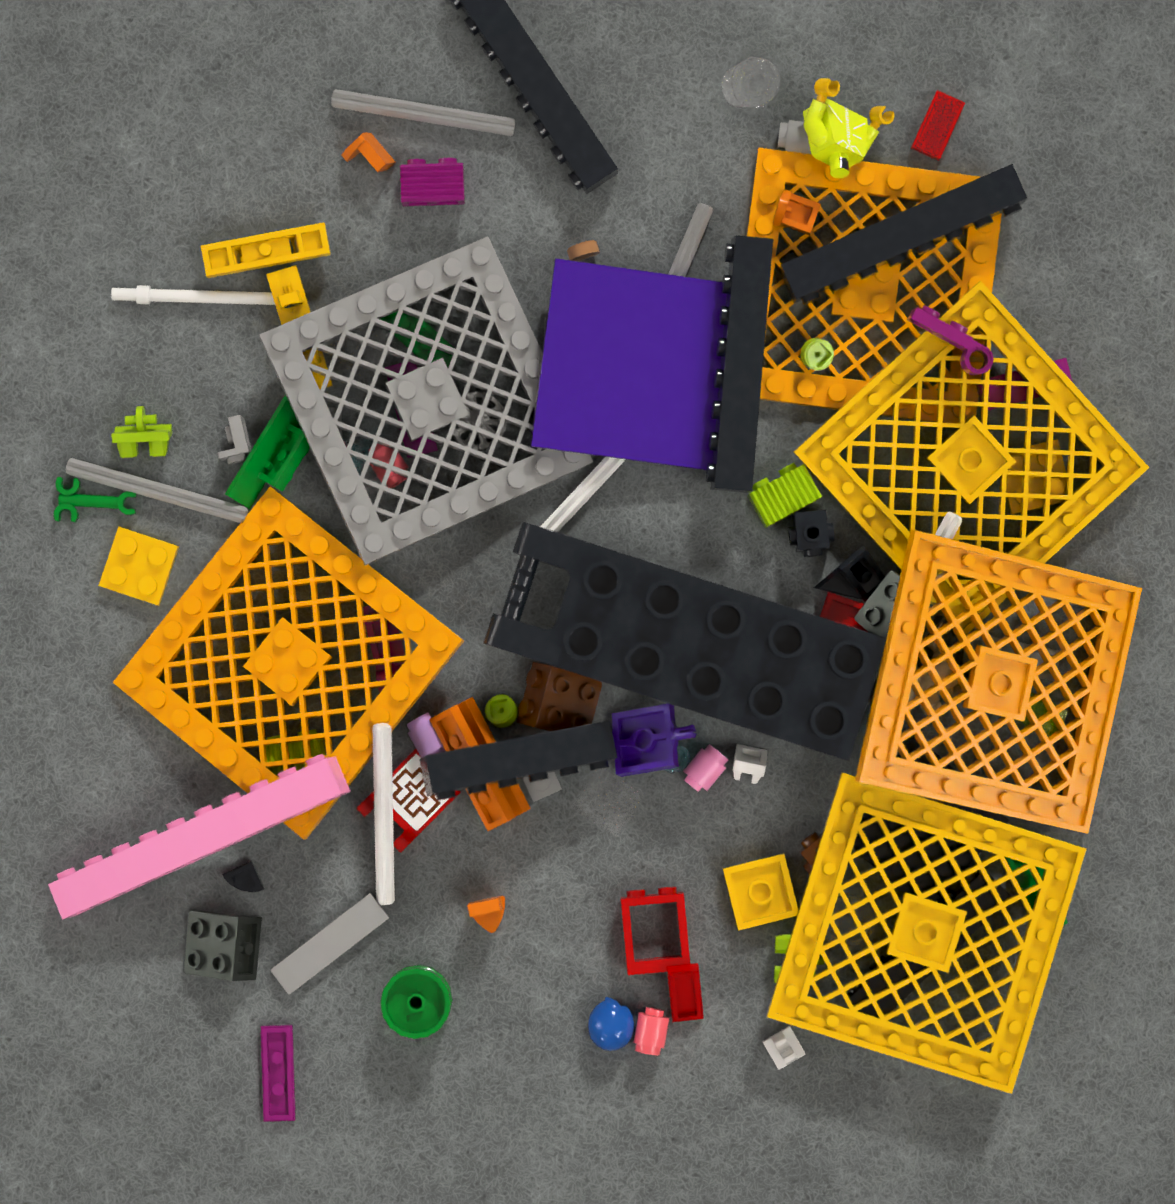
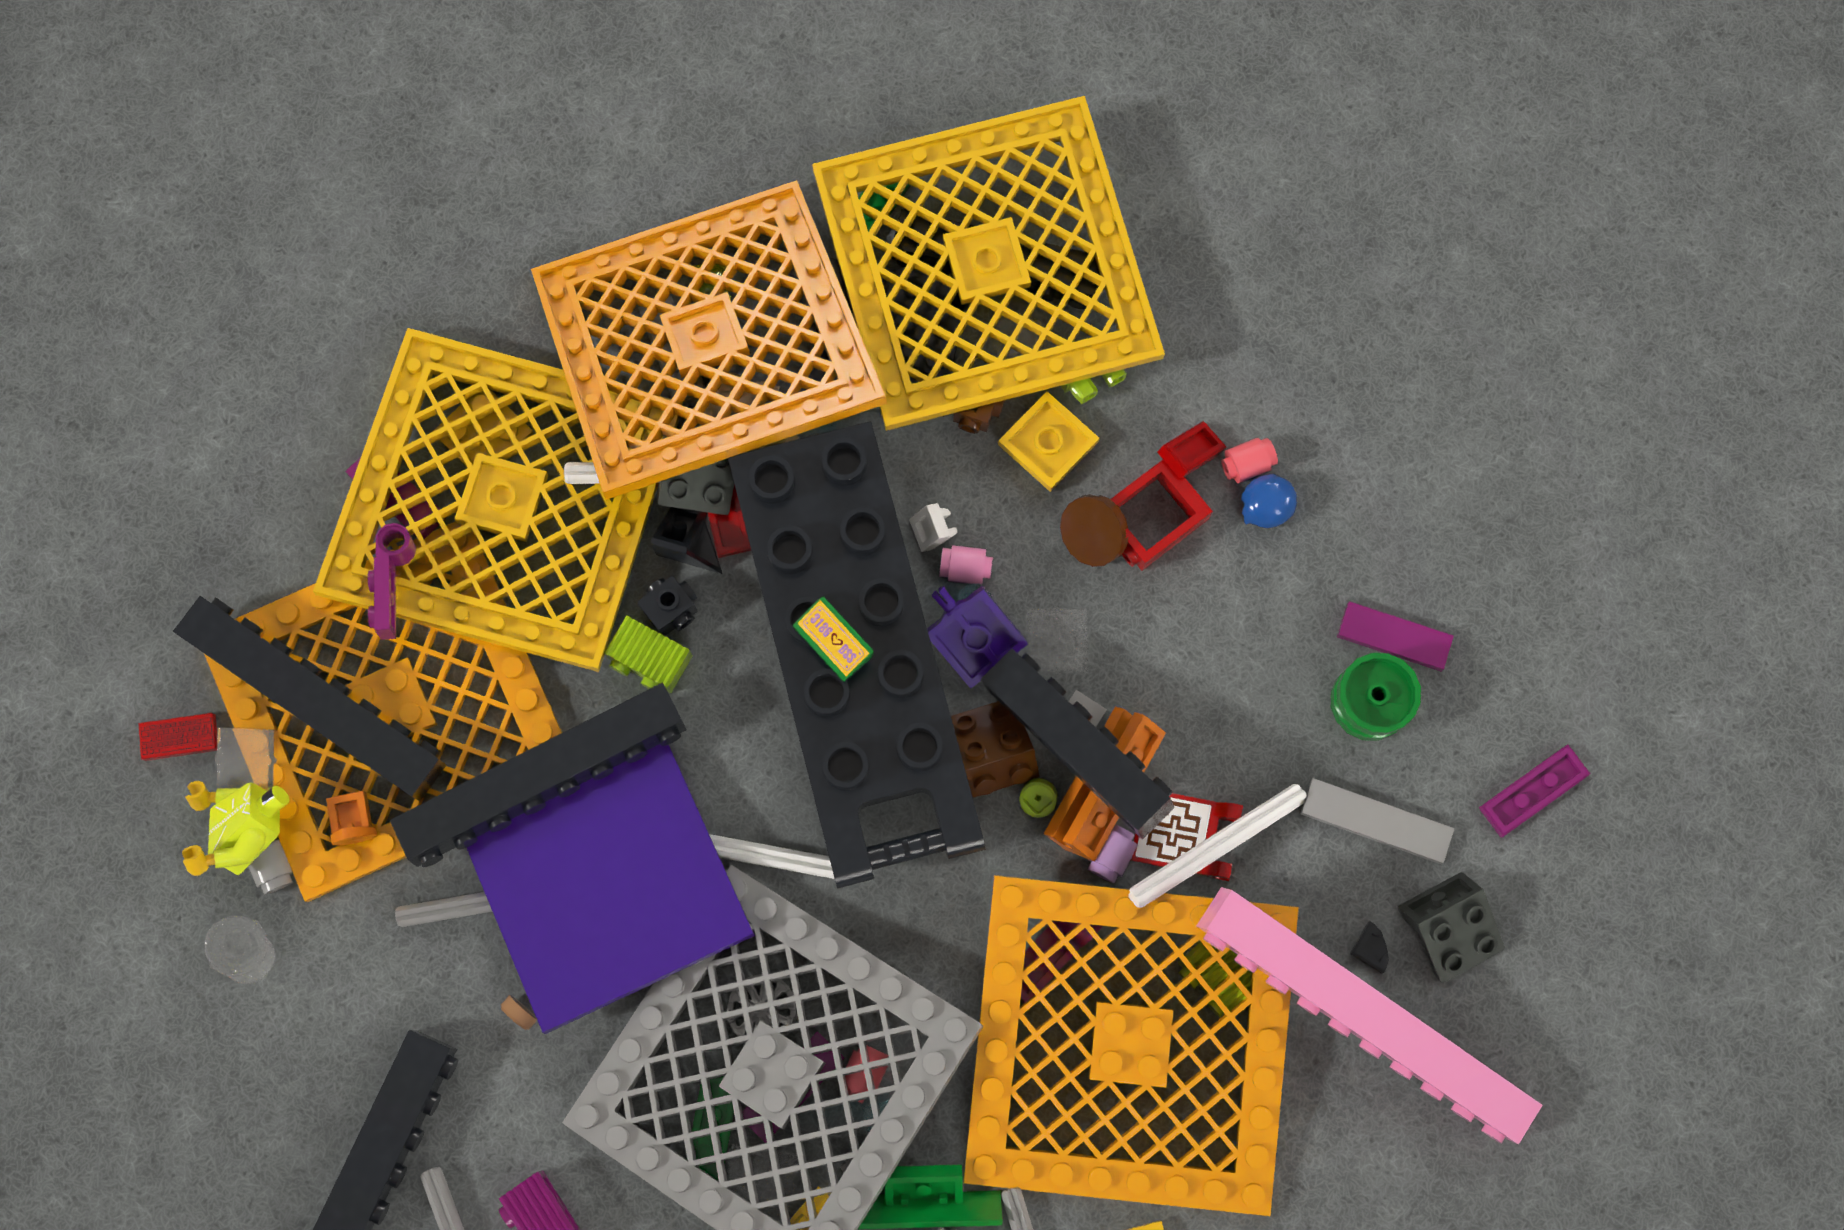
camera: 120 degrees left, 10 degrees down
(452, 1050) = (1395, 636): none -> magenta tile
(488, 912) = (1241, 686): orange tile -> none
(669, 878) = (1094, 530): none -> reddish brown tile
(697, 626) = (833, 639): none -> slope
(784, 1047) = (1180, 331): white tile -> none
(817, 354) = (484, 708): lime tile -> none
(889, 163) = (245, 757): none -> clear piece

